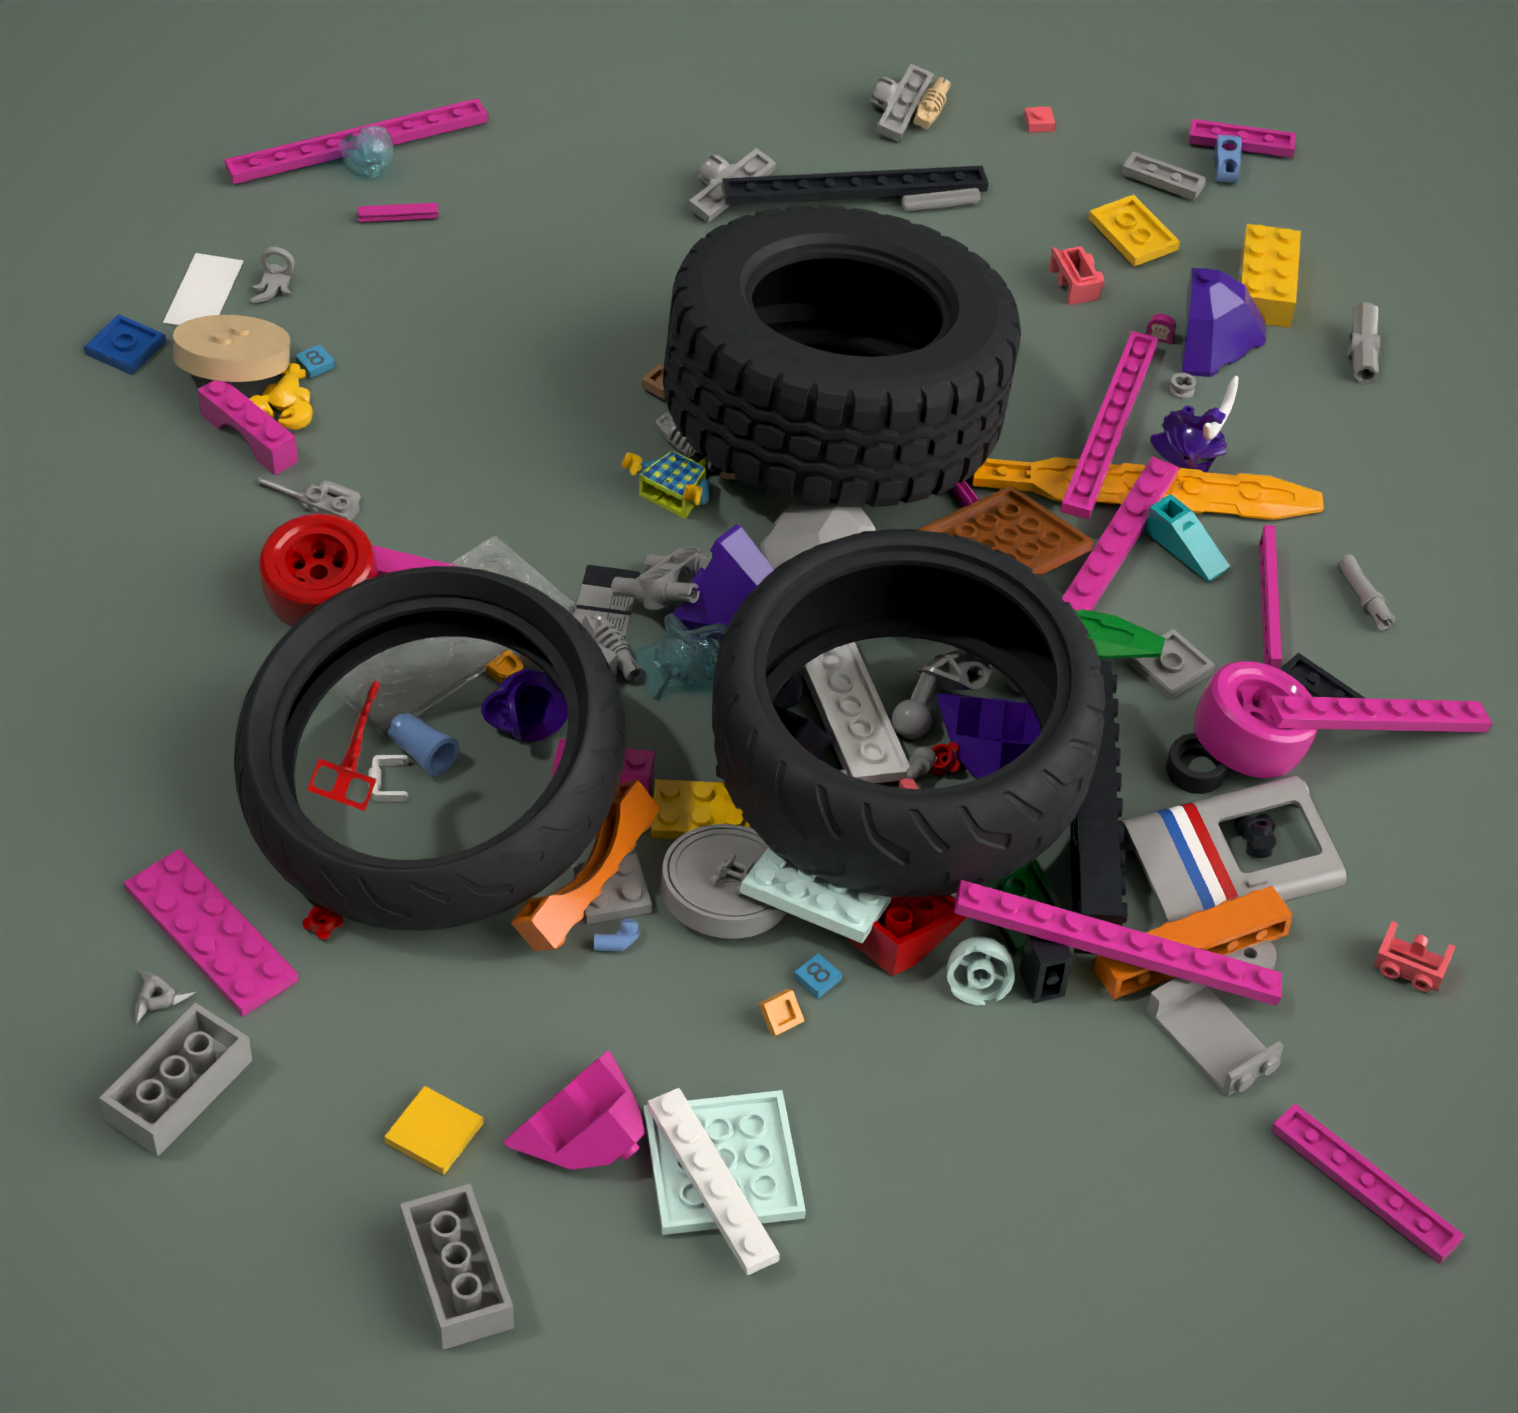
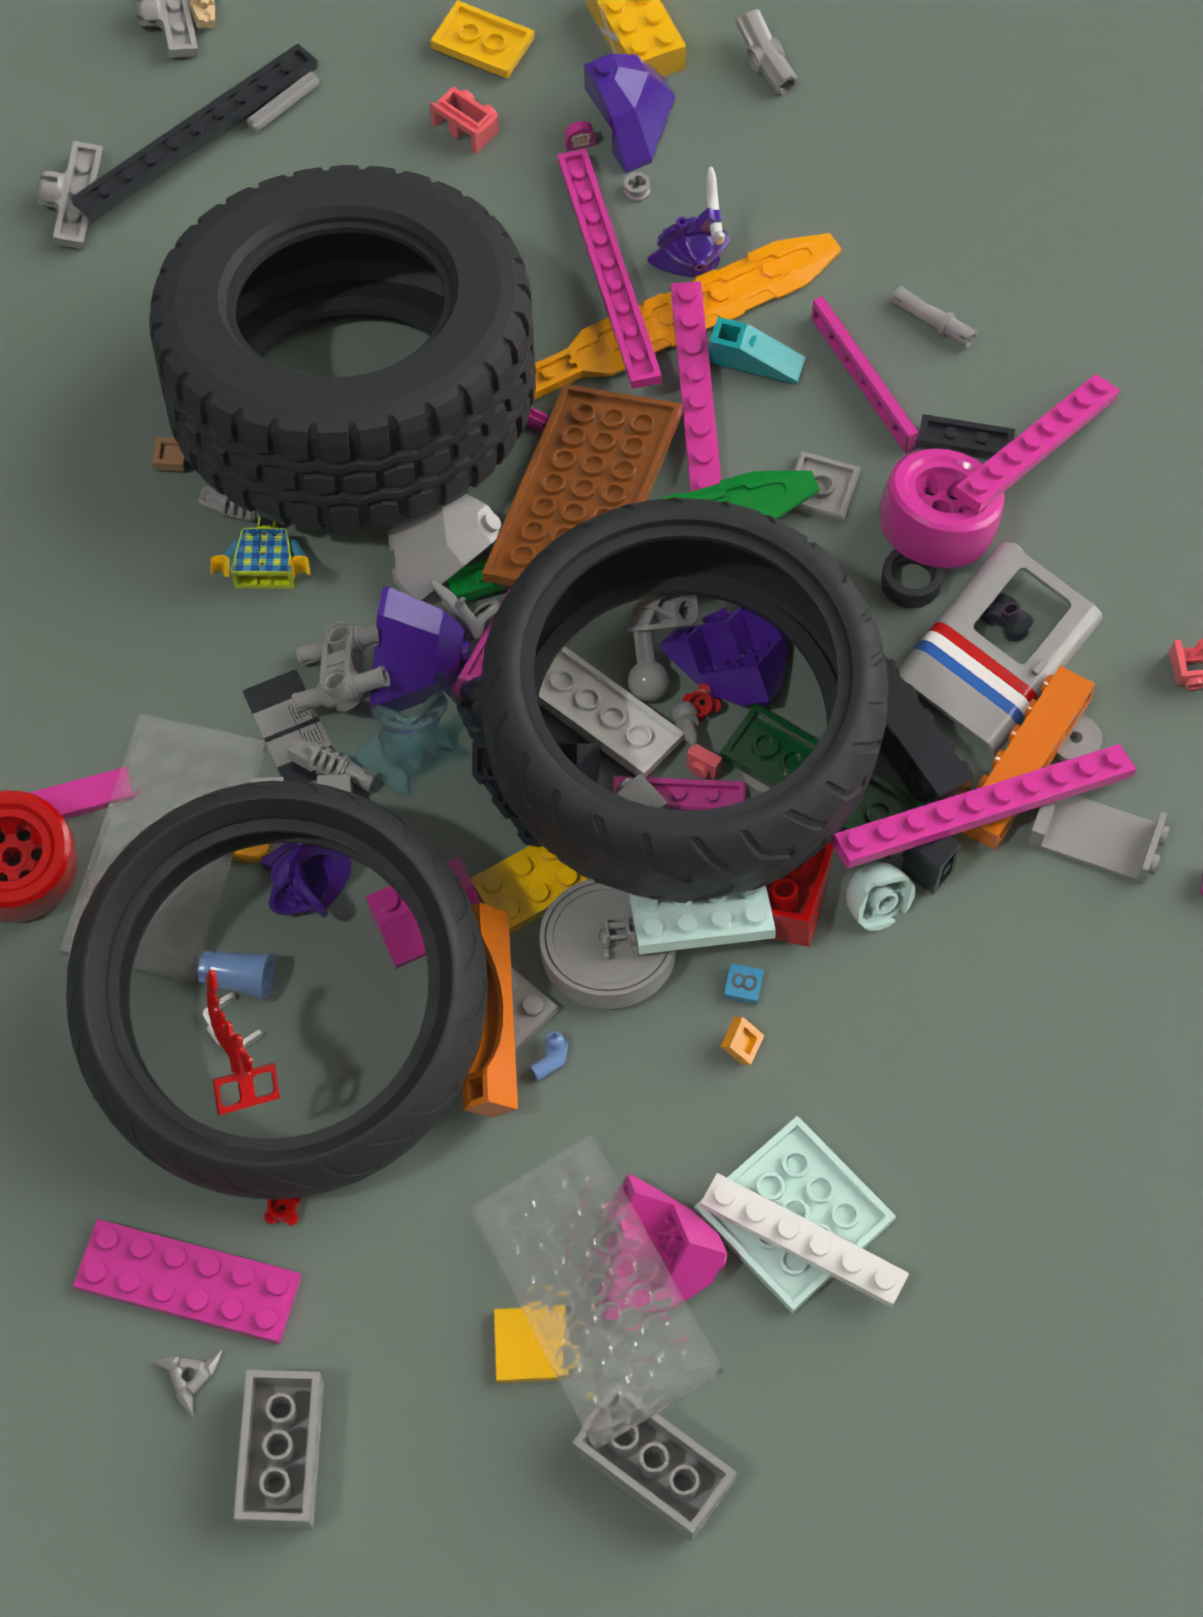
camera: 30 degrees left, 15 degrees up
(508, 1110) = (596, 1292): none -> clear plate

